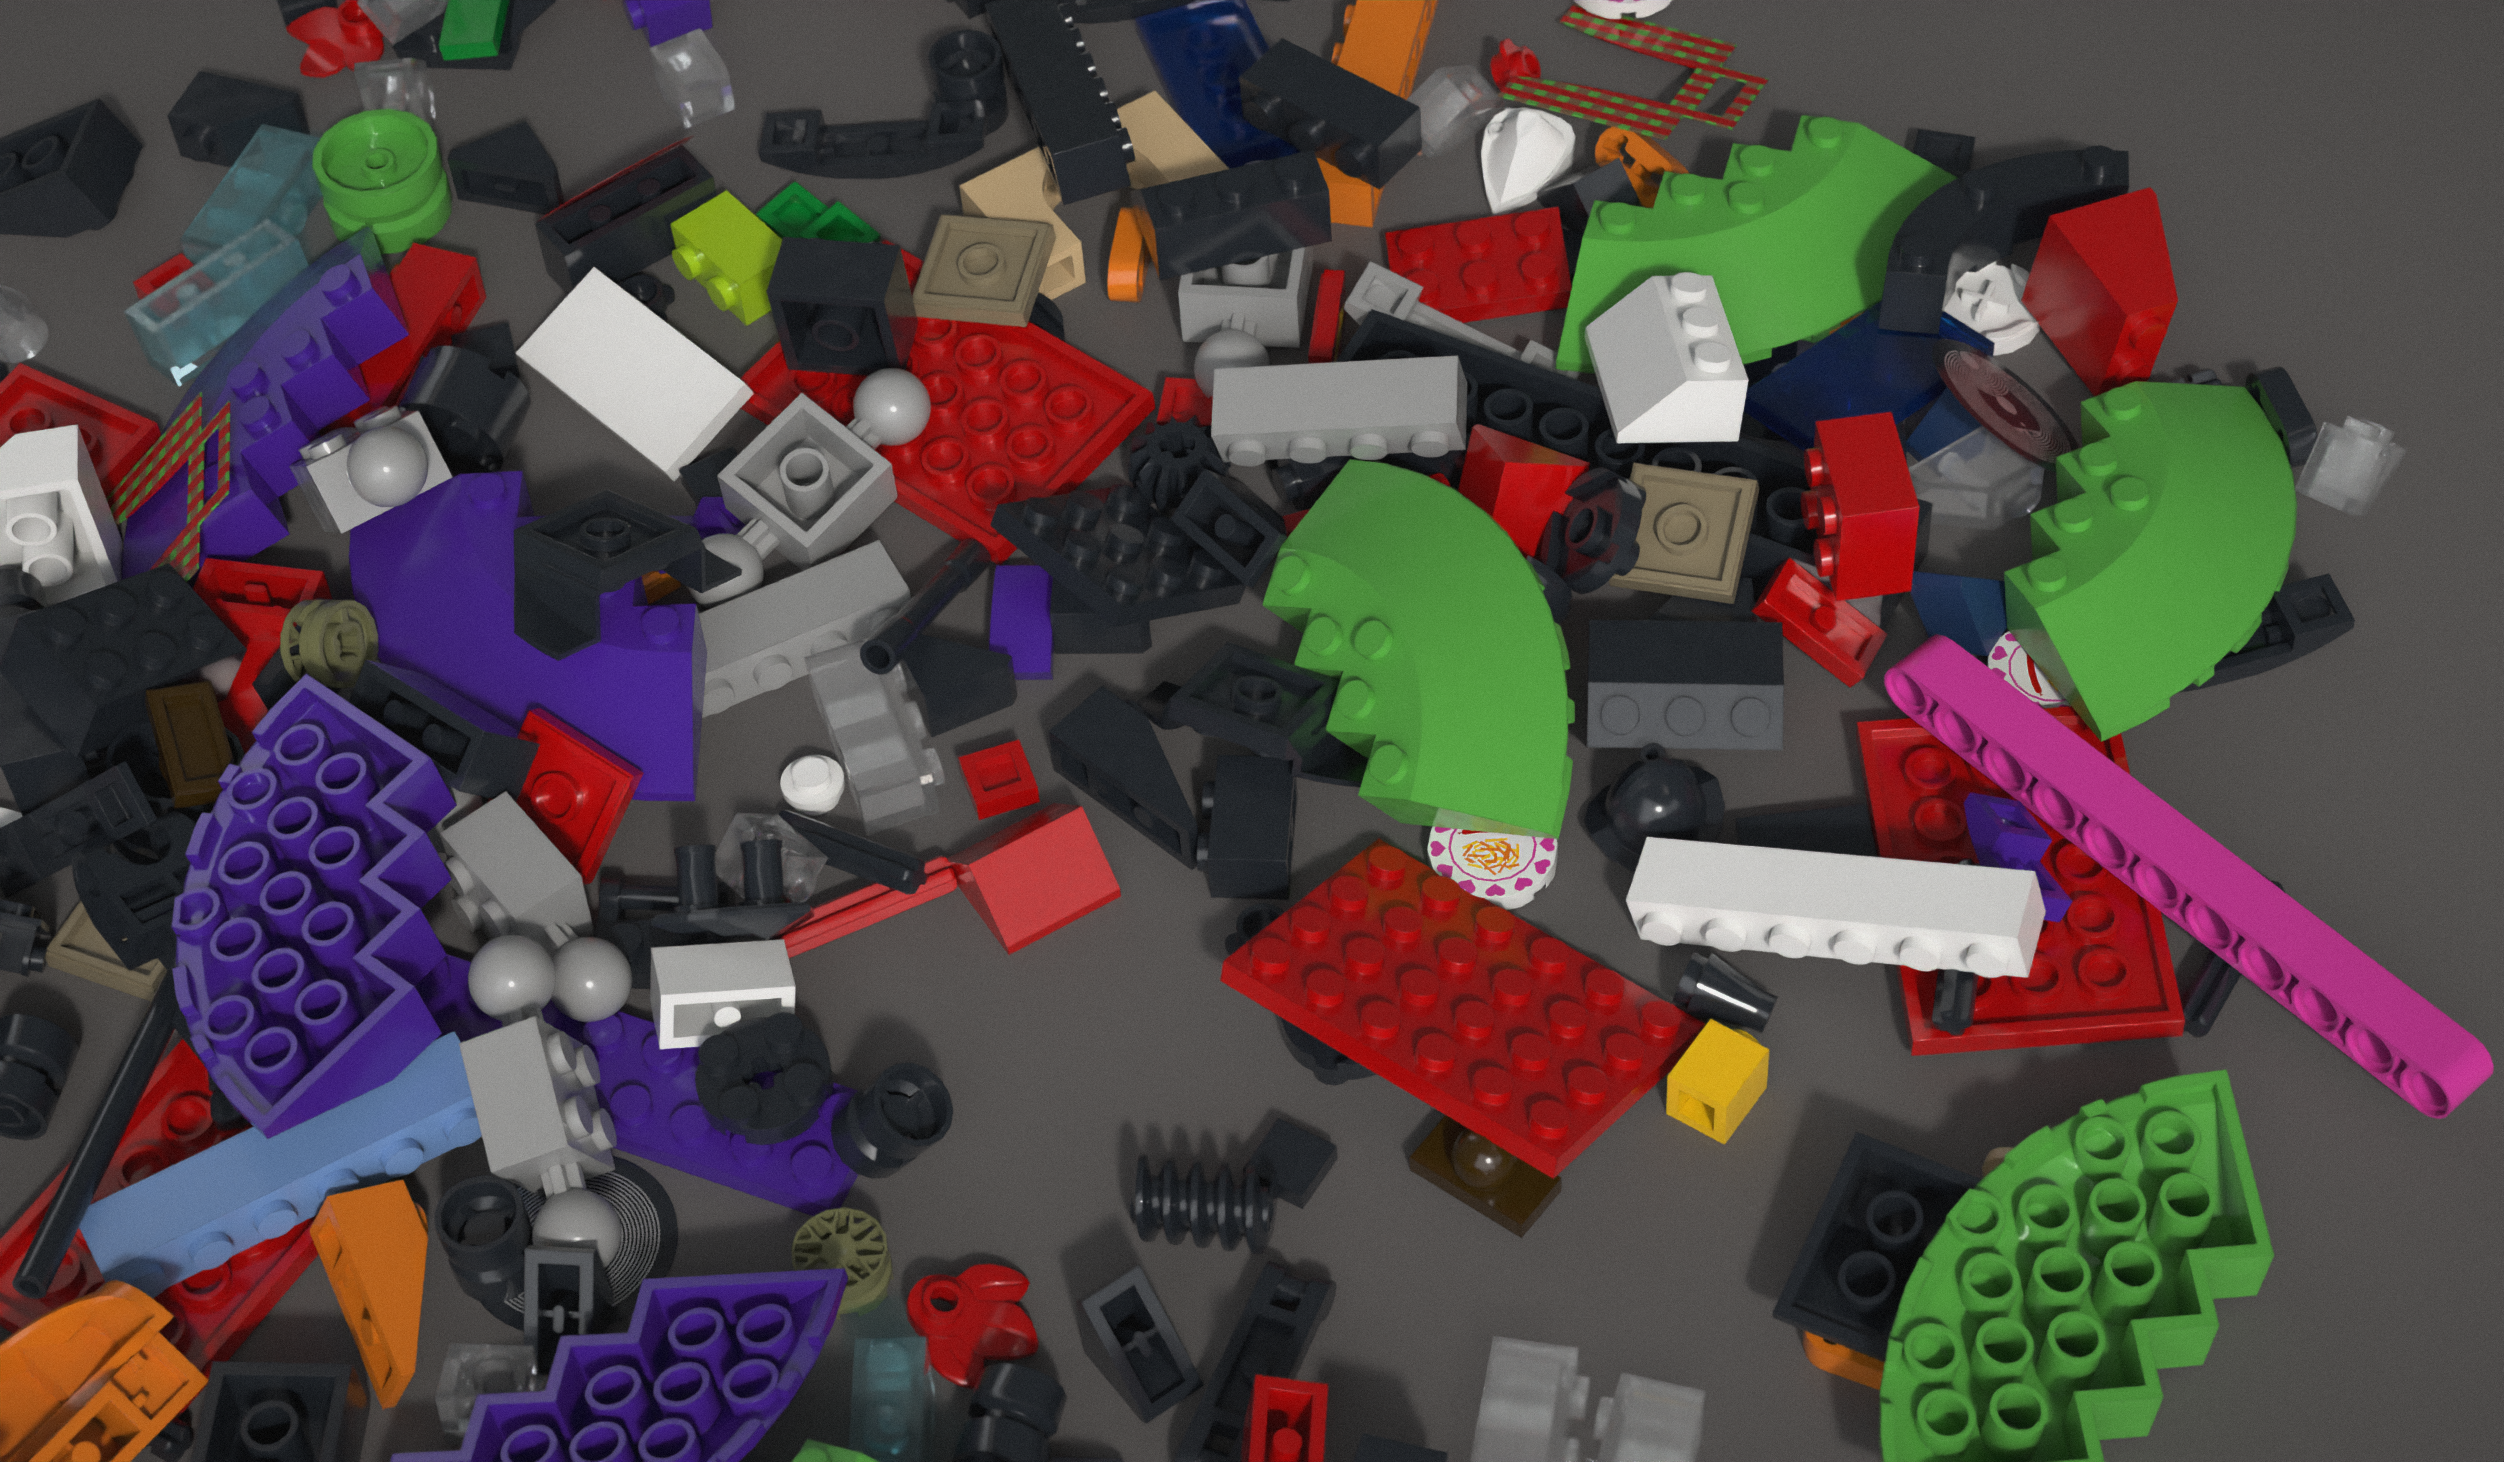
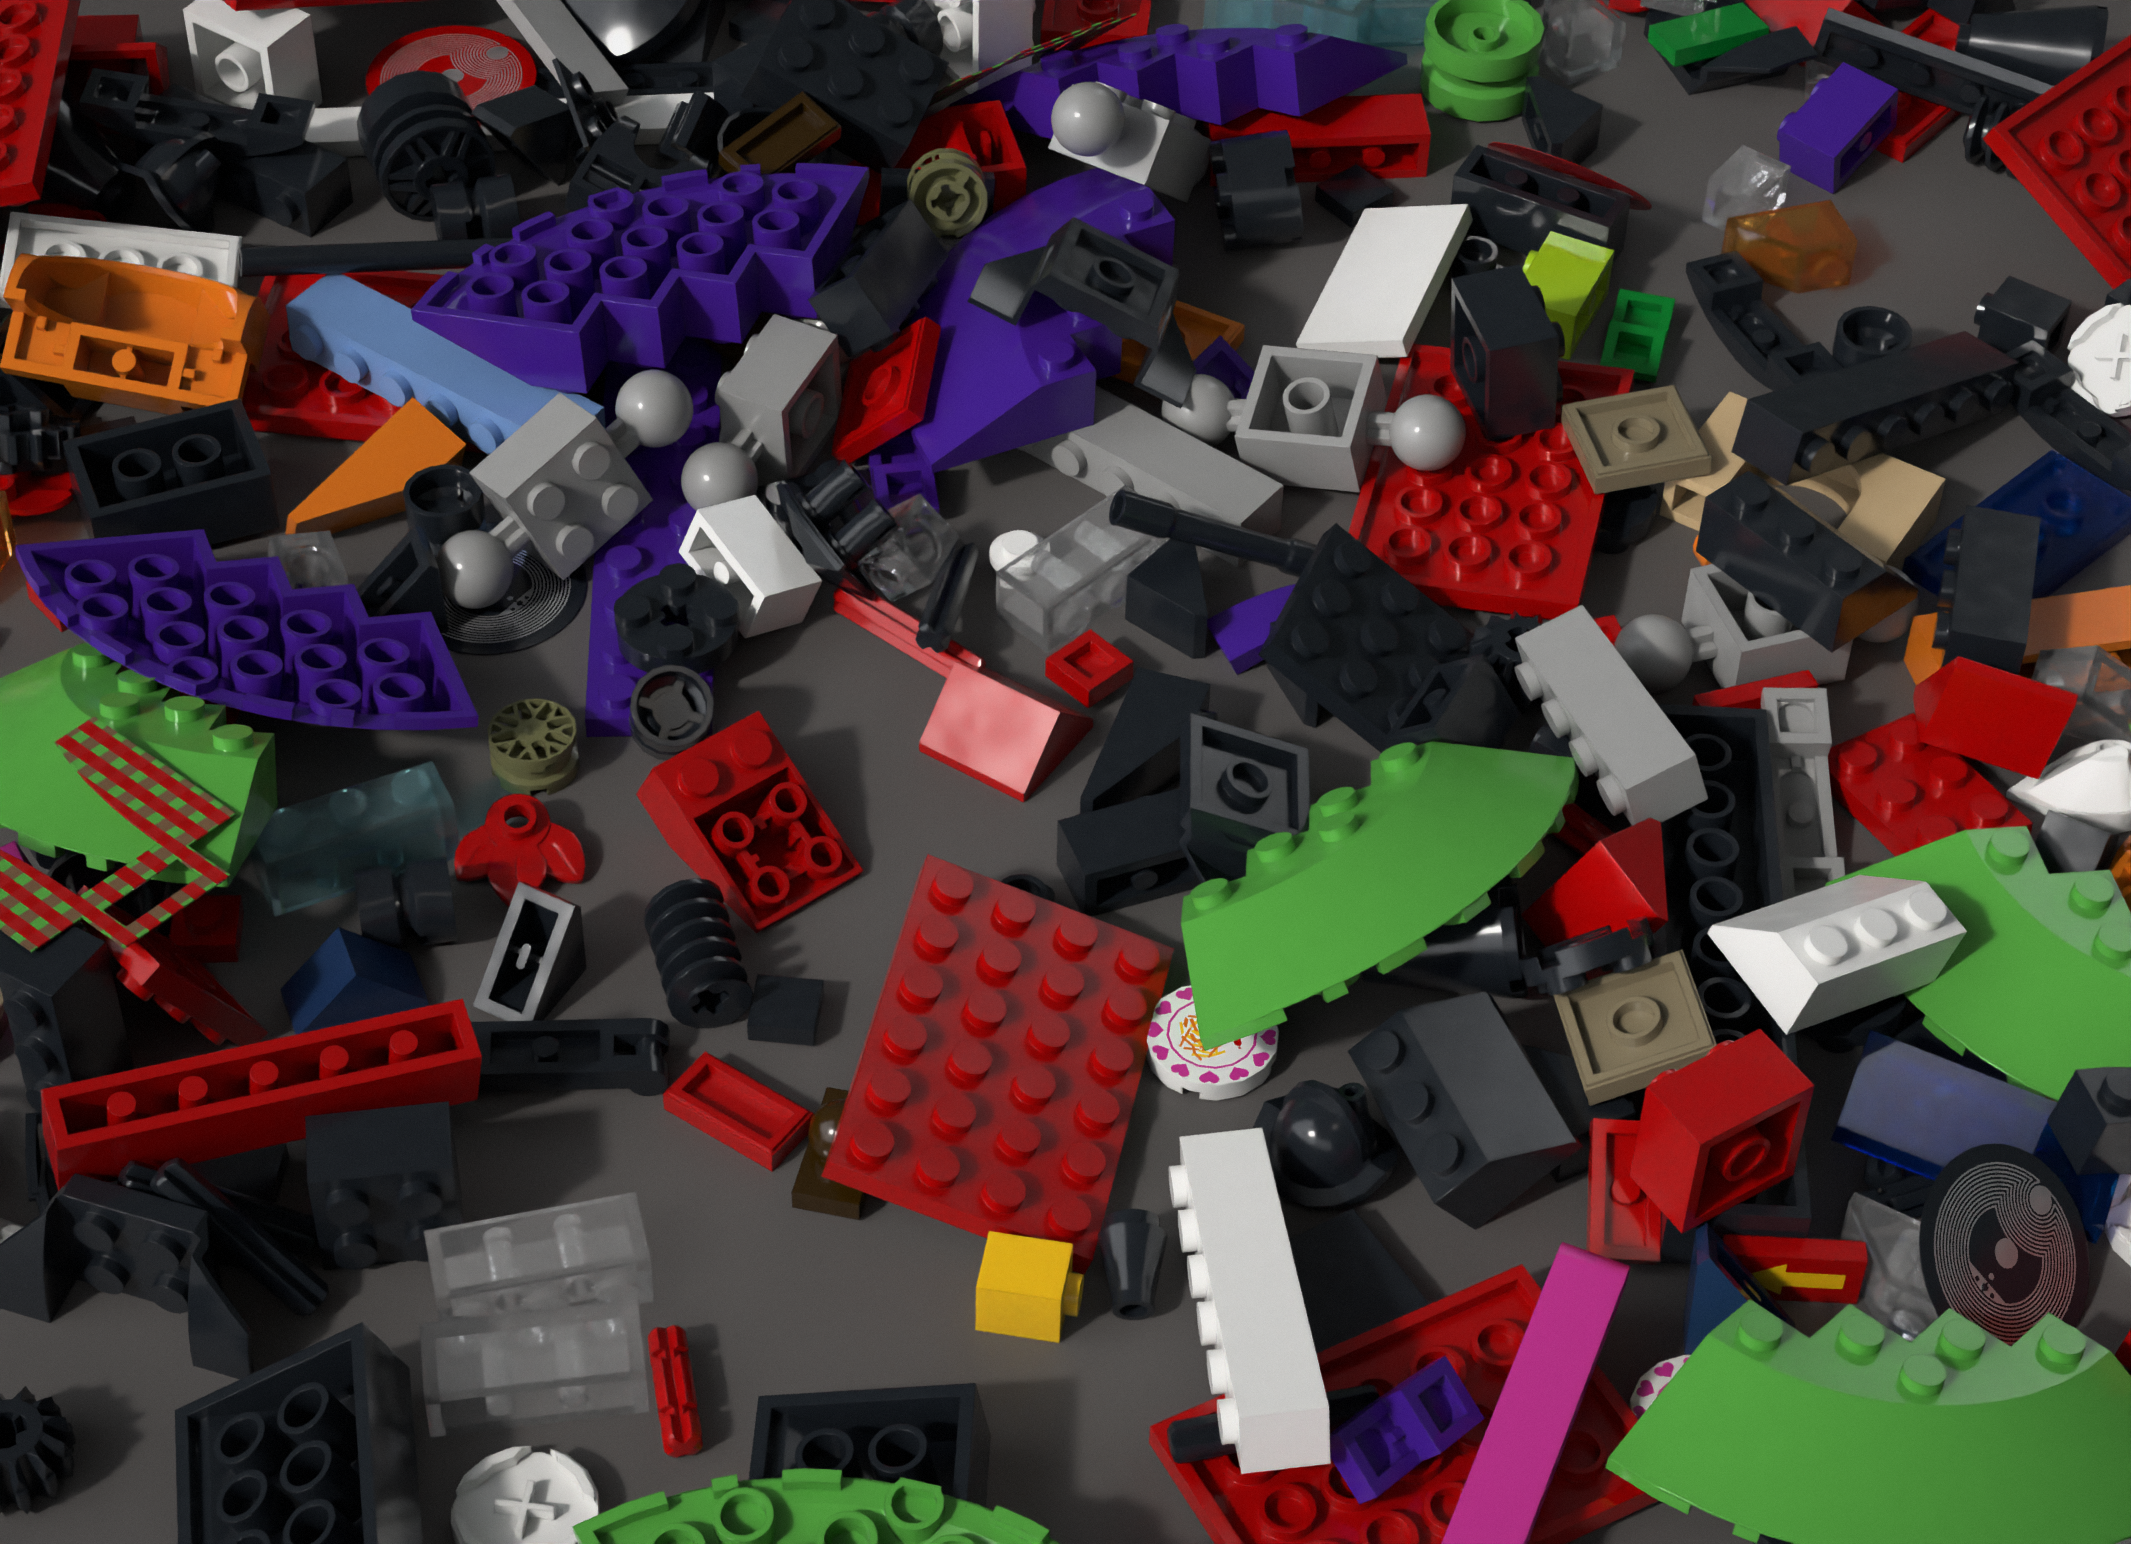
camera: 60 degrees right, 5 degrees down
(647, 841) = (900, 472): none -> dark purple slope
(786, 72) = (1795, 246): none -> clear orange slope
(1048, 1114) = (748, 823): none -> red slope
(1392, 1241) = (738, 1111): none -> red tile
(1442, 180) = (1992, 715): none -> red slope
(1750, 1401) = (675, 1391): none -> red axle
(1942, 540) = (1803, 1266): none -> red tile

